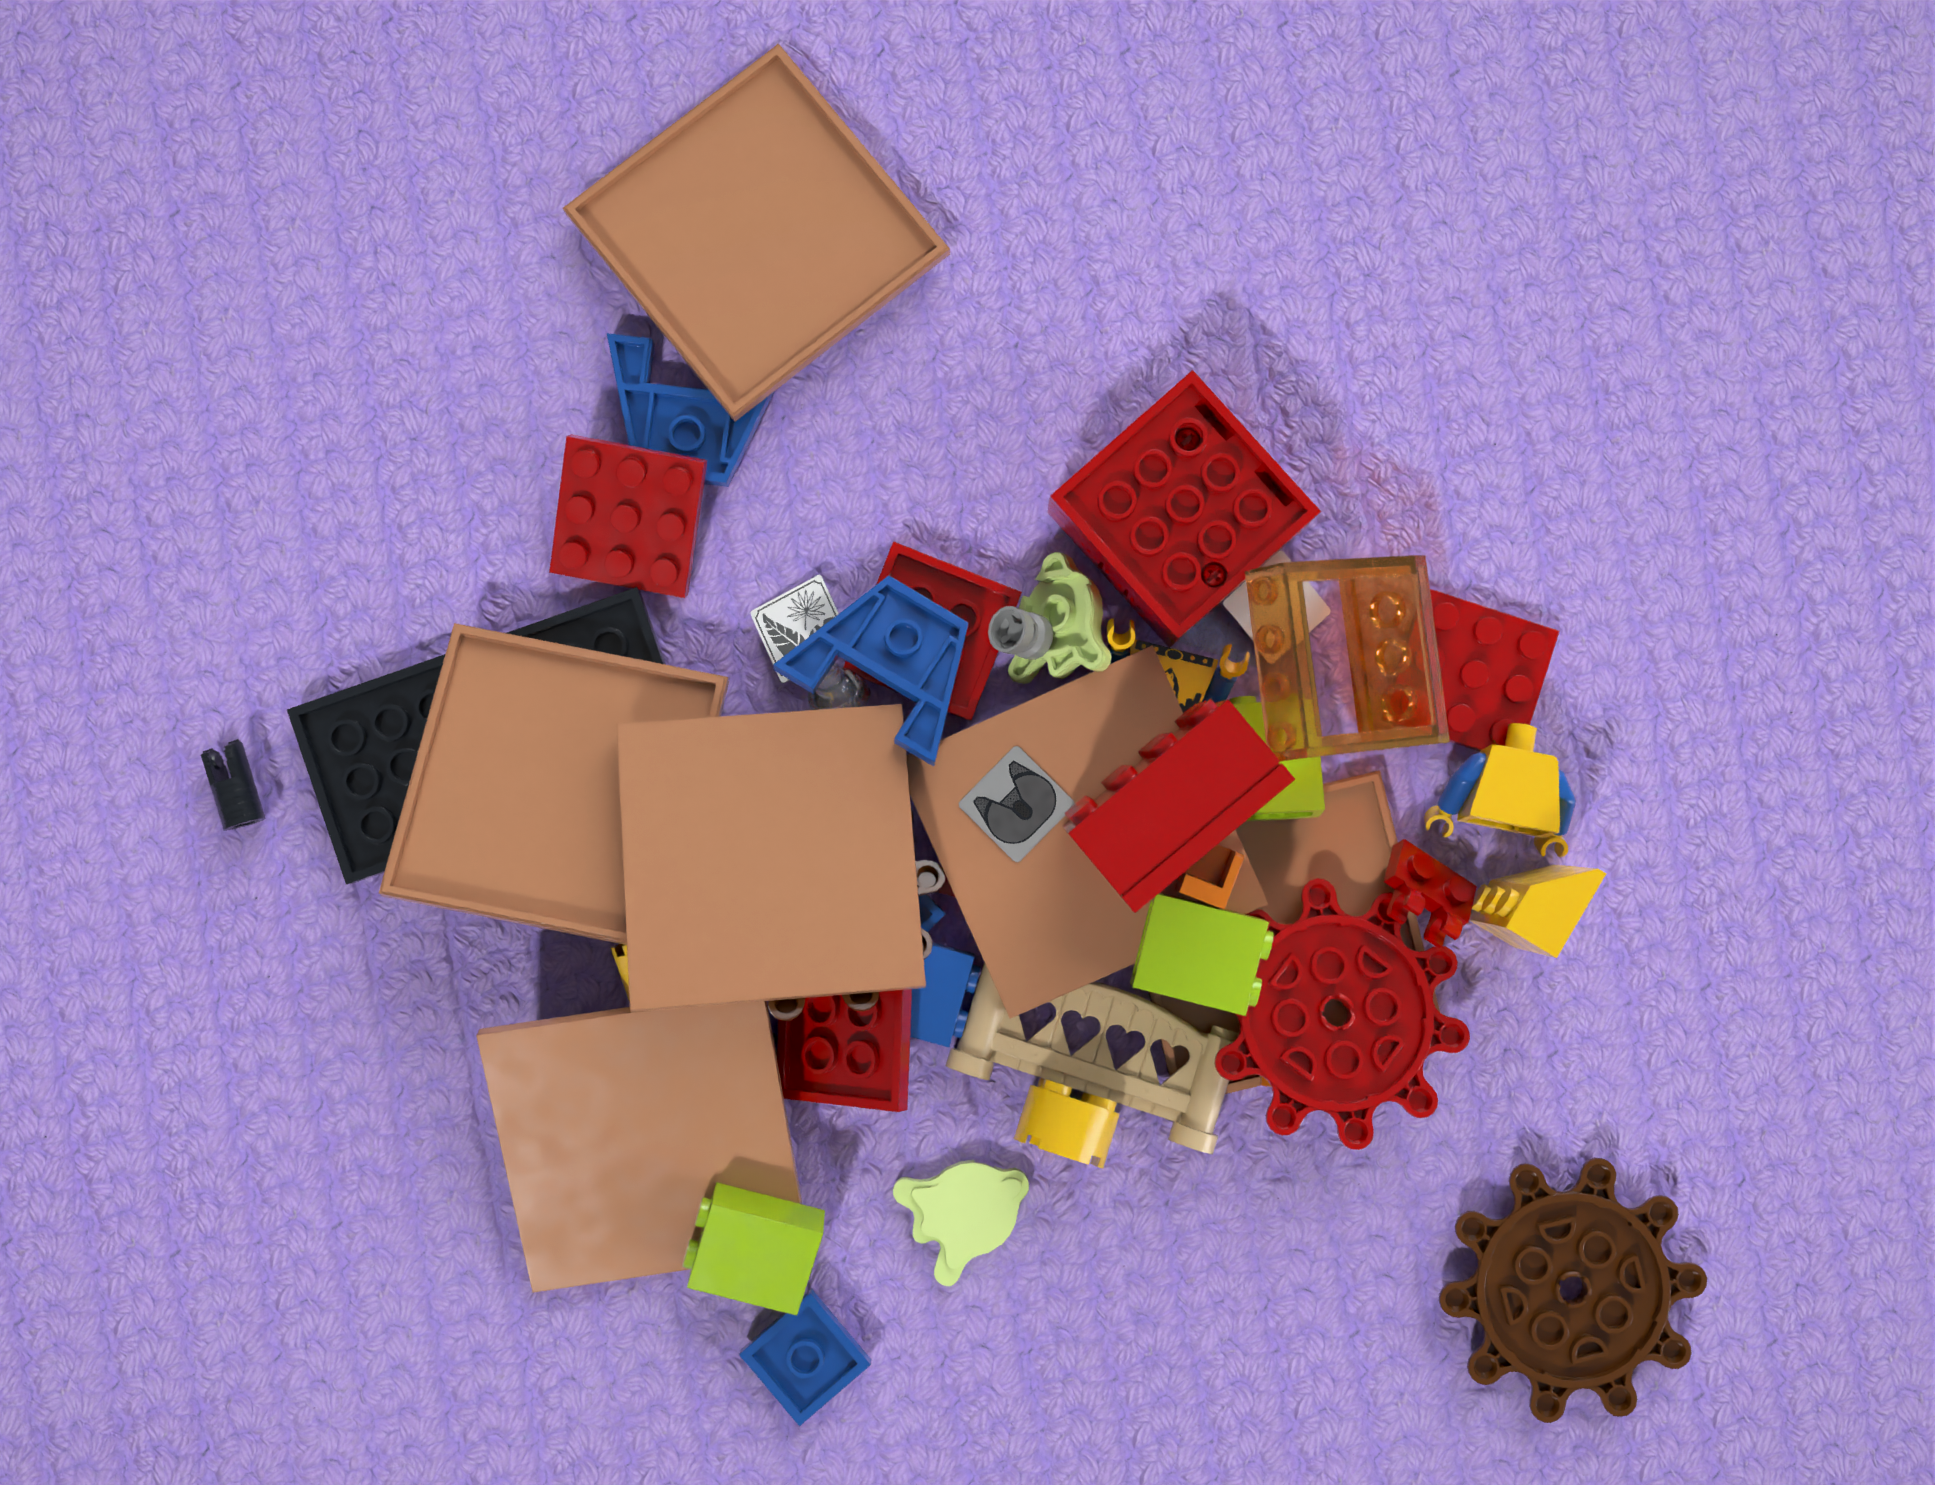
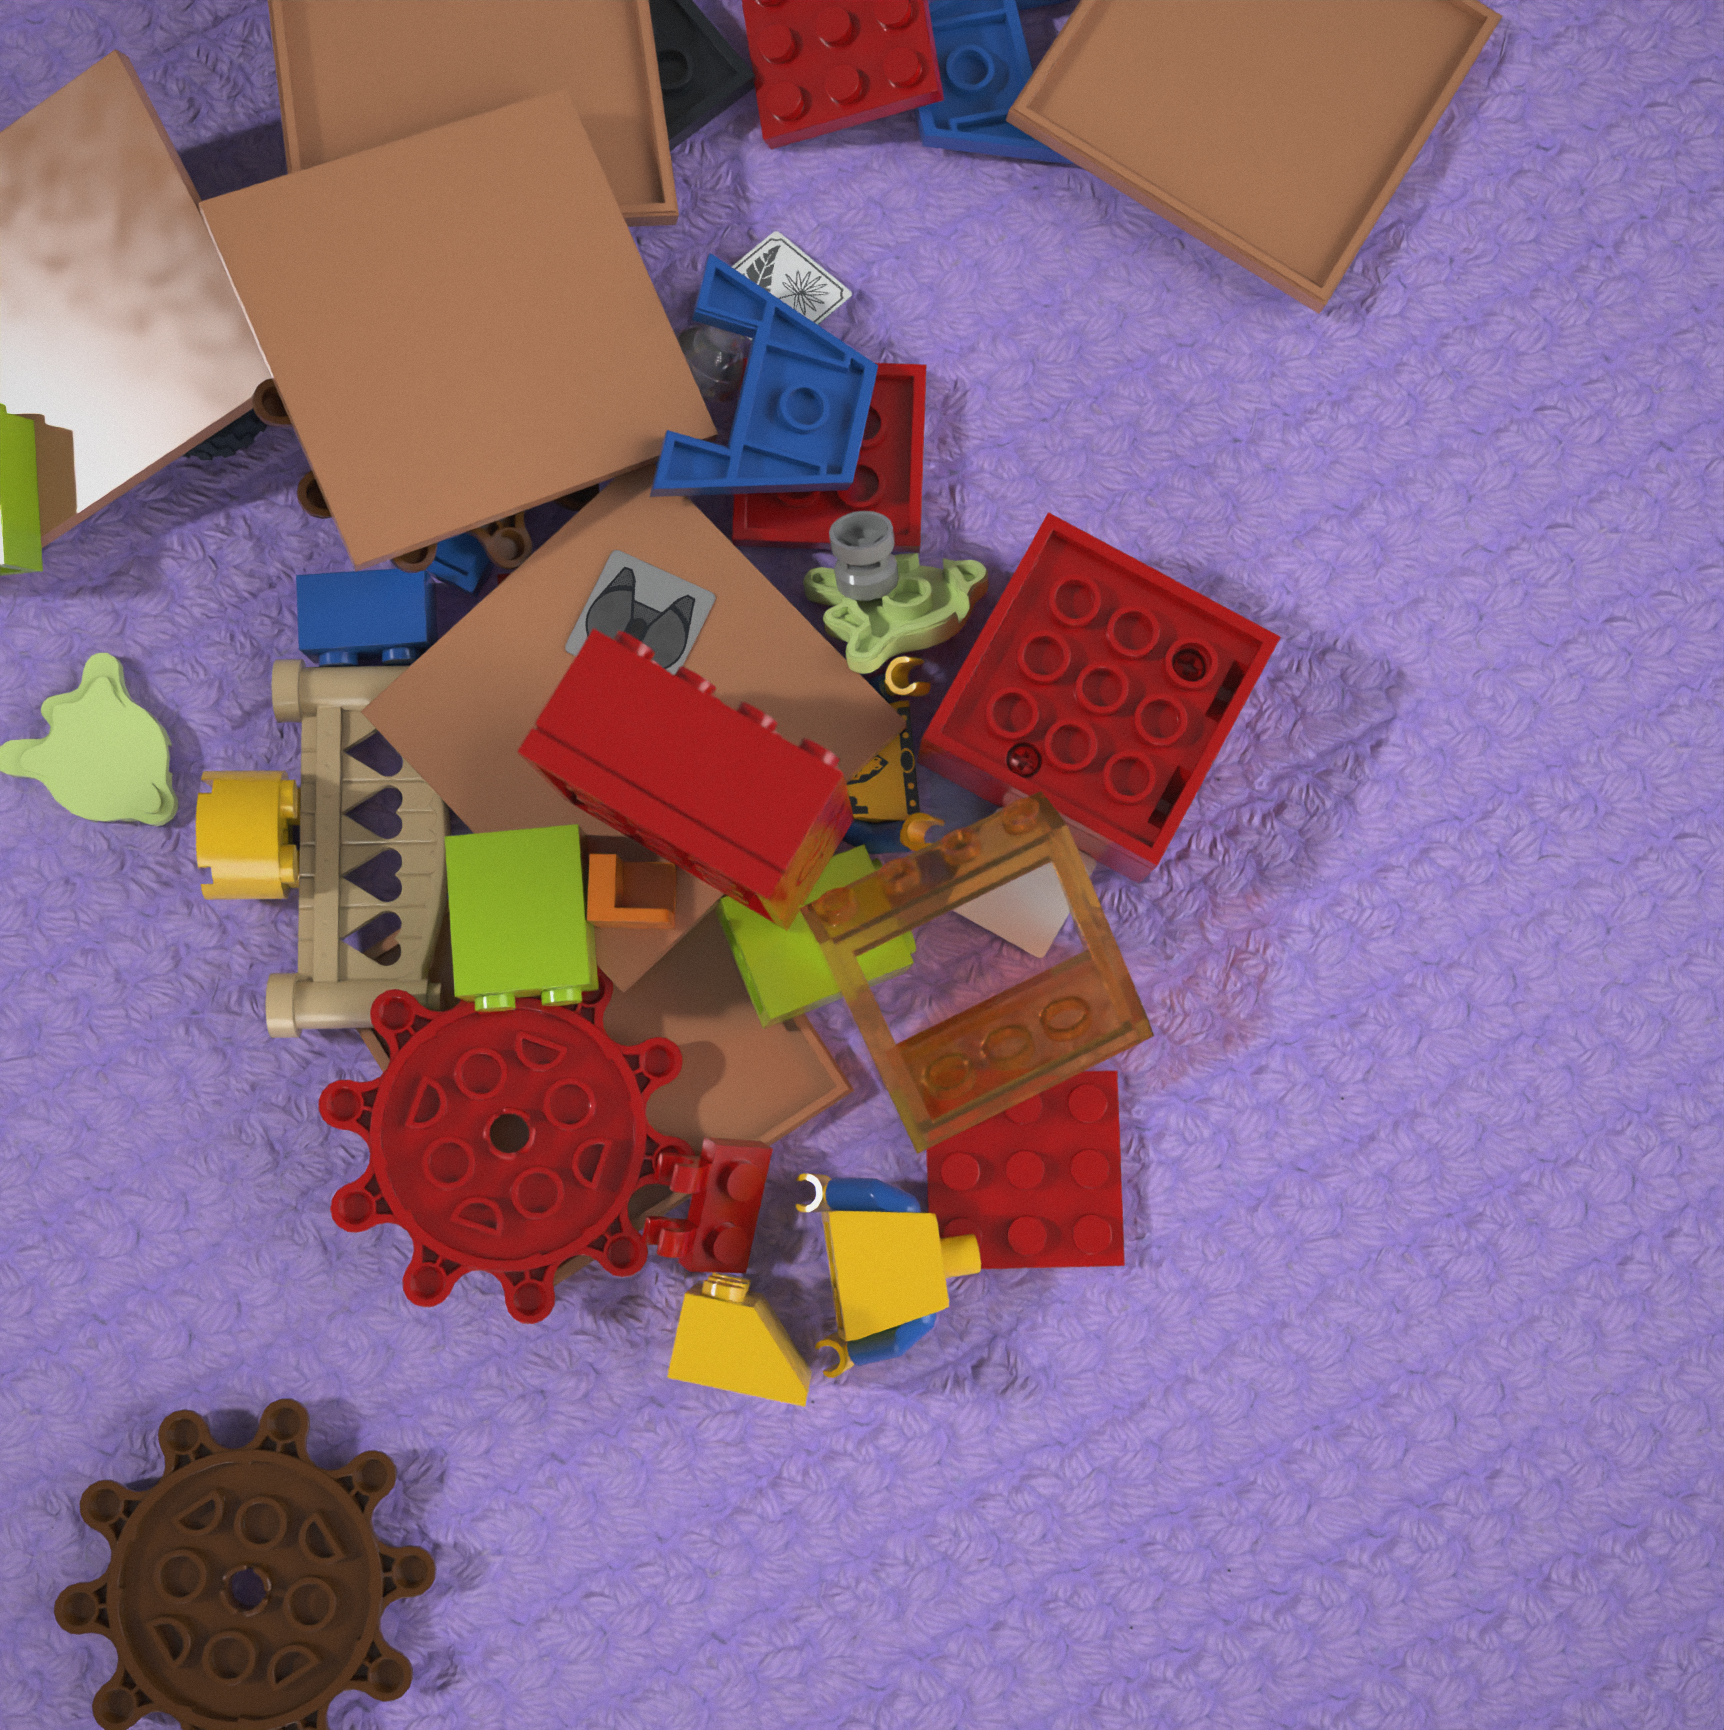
camera: 70 degrees right, 5 degrees down
(848, 1054) = (245, 527): red plate -> none

